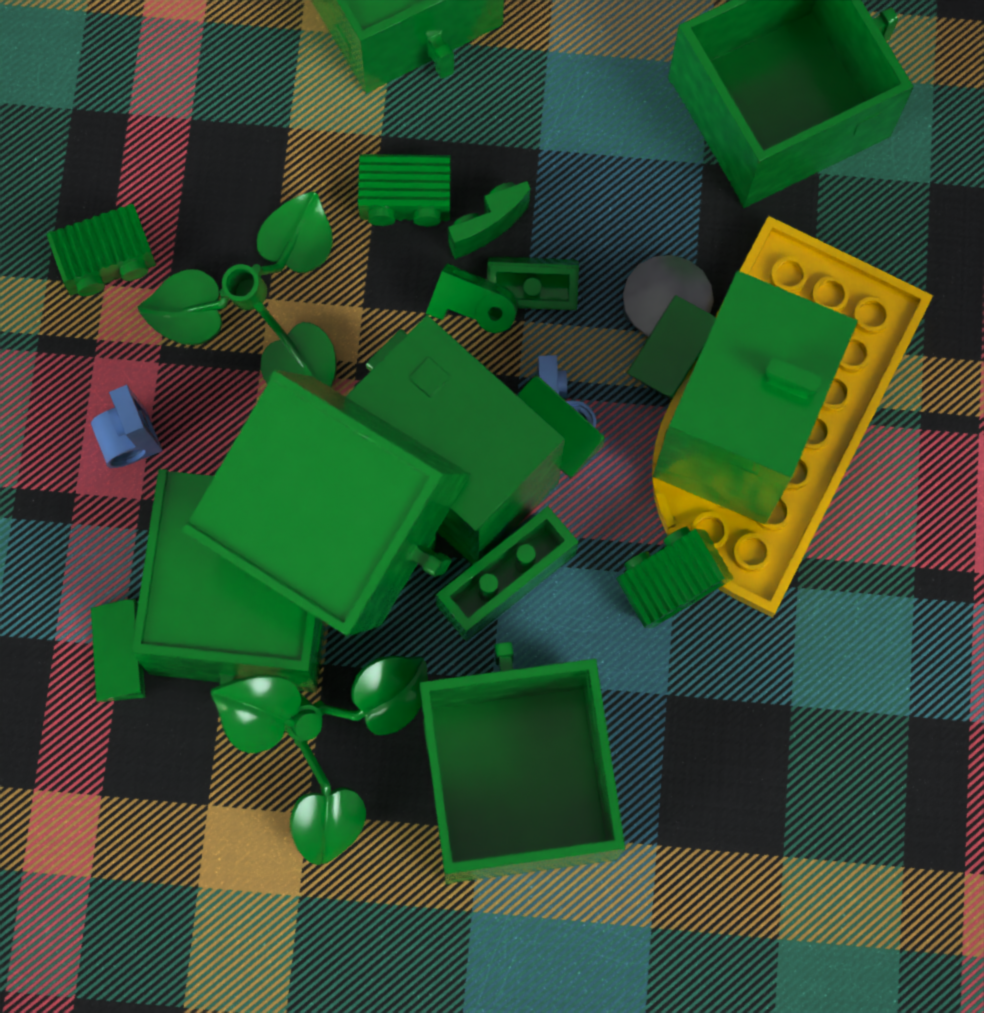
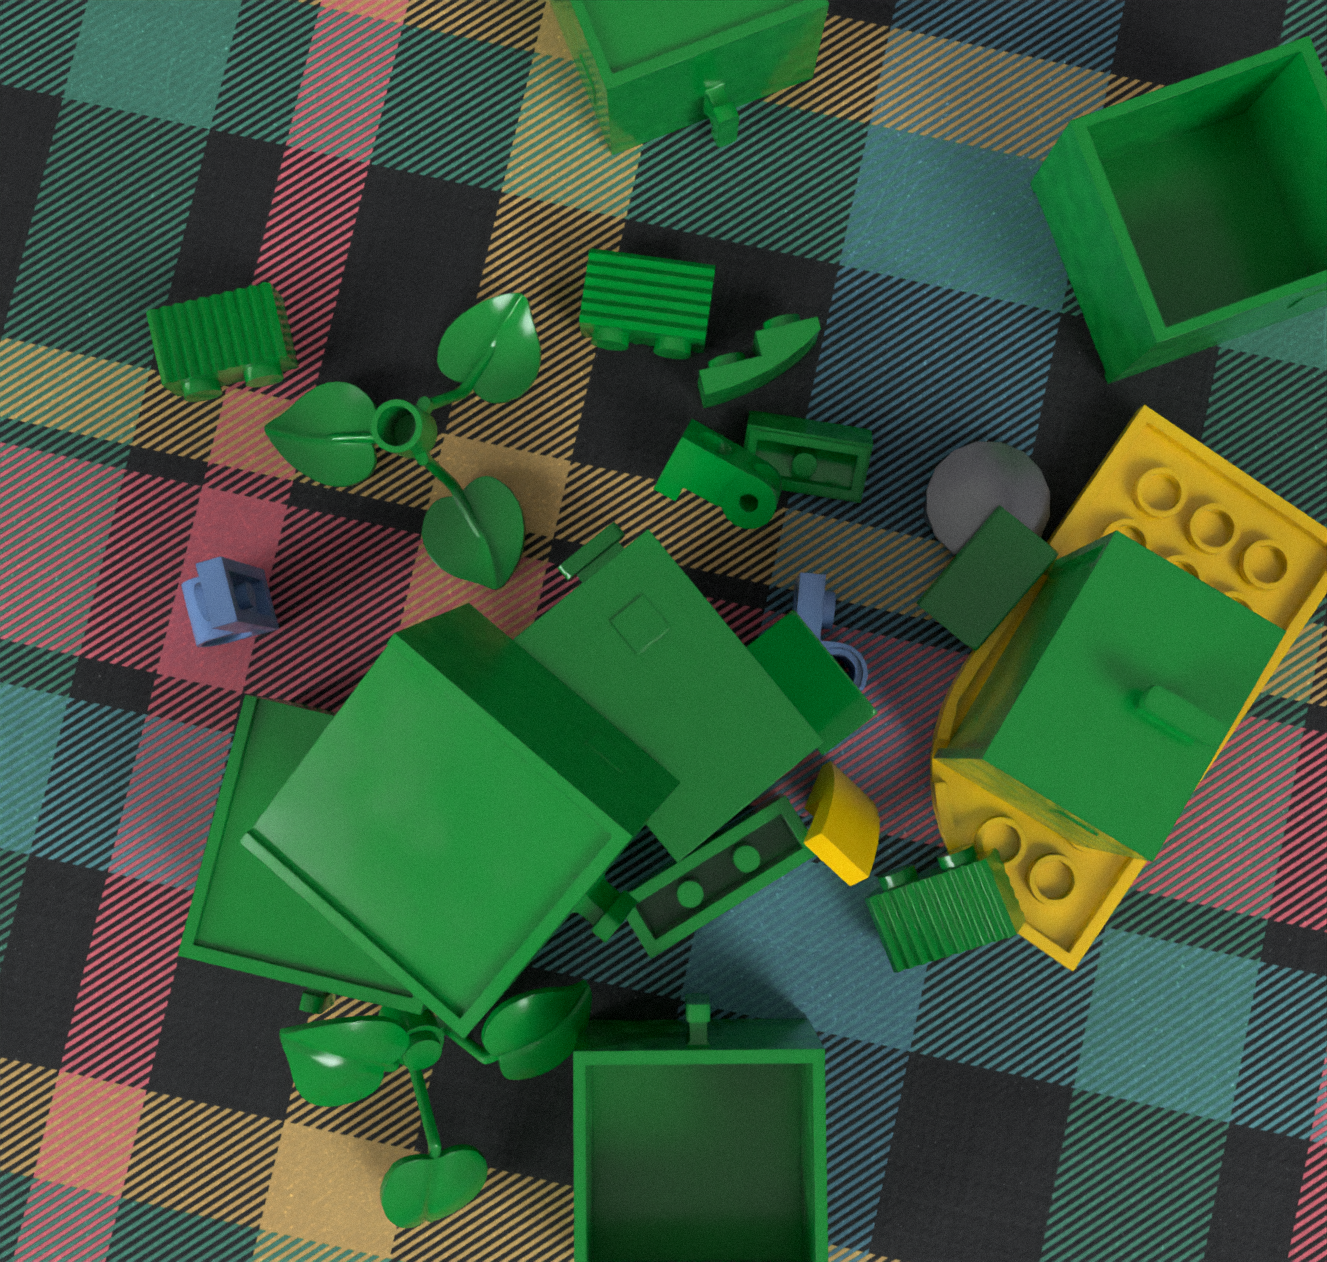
camera: 10 degrees right, 10 degrees up
(116, 668) = (175, 883): green slope -> none
(591, 525) = (843, 825): none -> yellow slope

